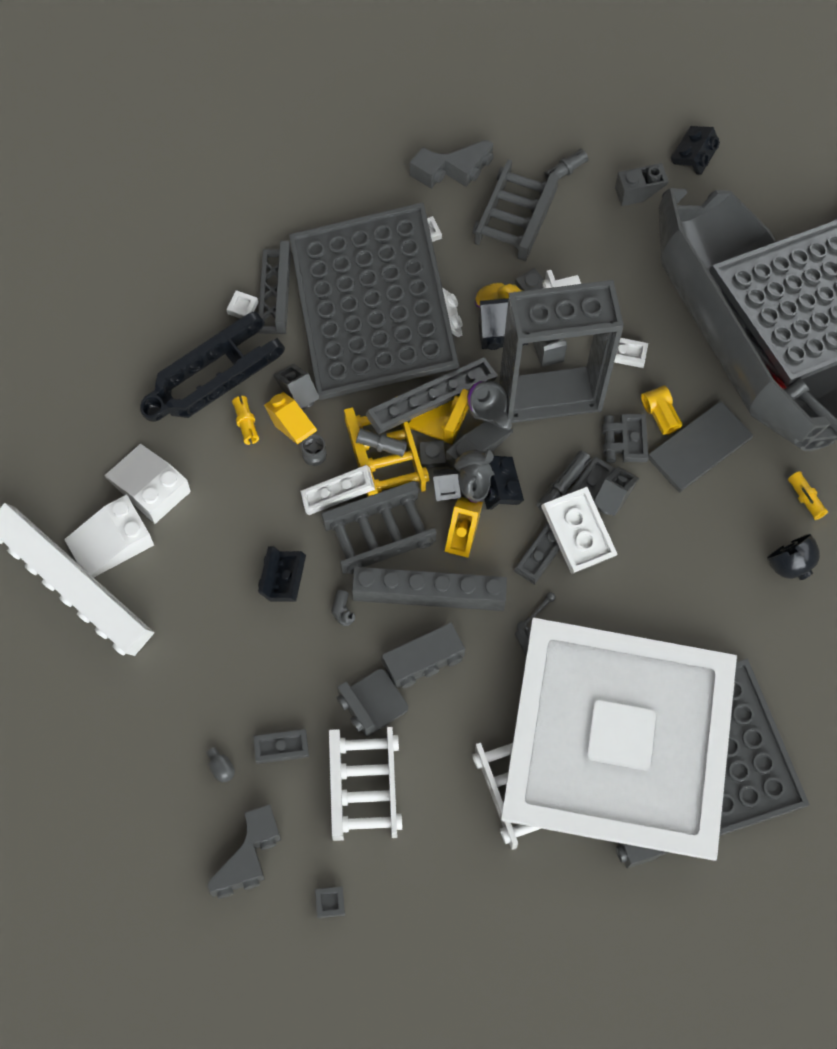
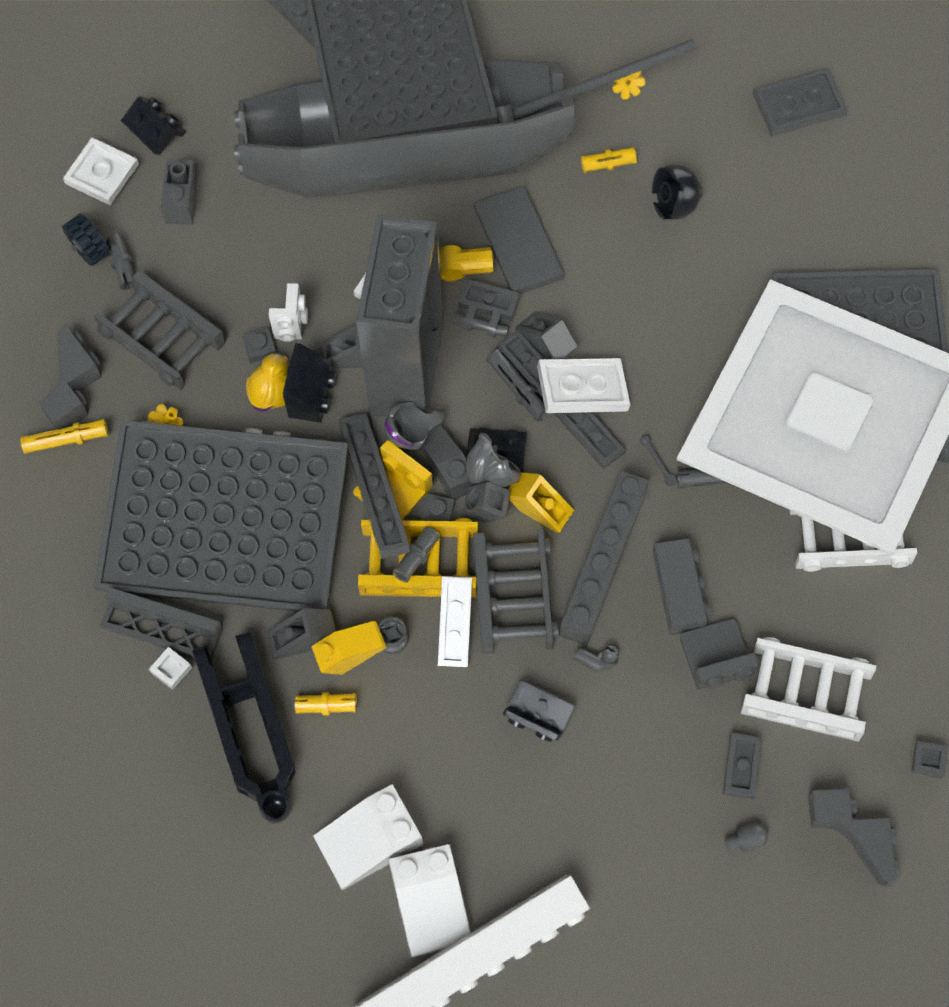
camera: 70 degrees left, 0 degrees up
(410, 183) = (74, 434): none -> yellow pin
(438, 242) = (165, 416): none -> yellow plant
(571, 133) = (85, 239): none -> black wheel
(639, 127) = (101, 171): none -> white plate

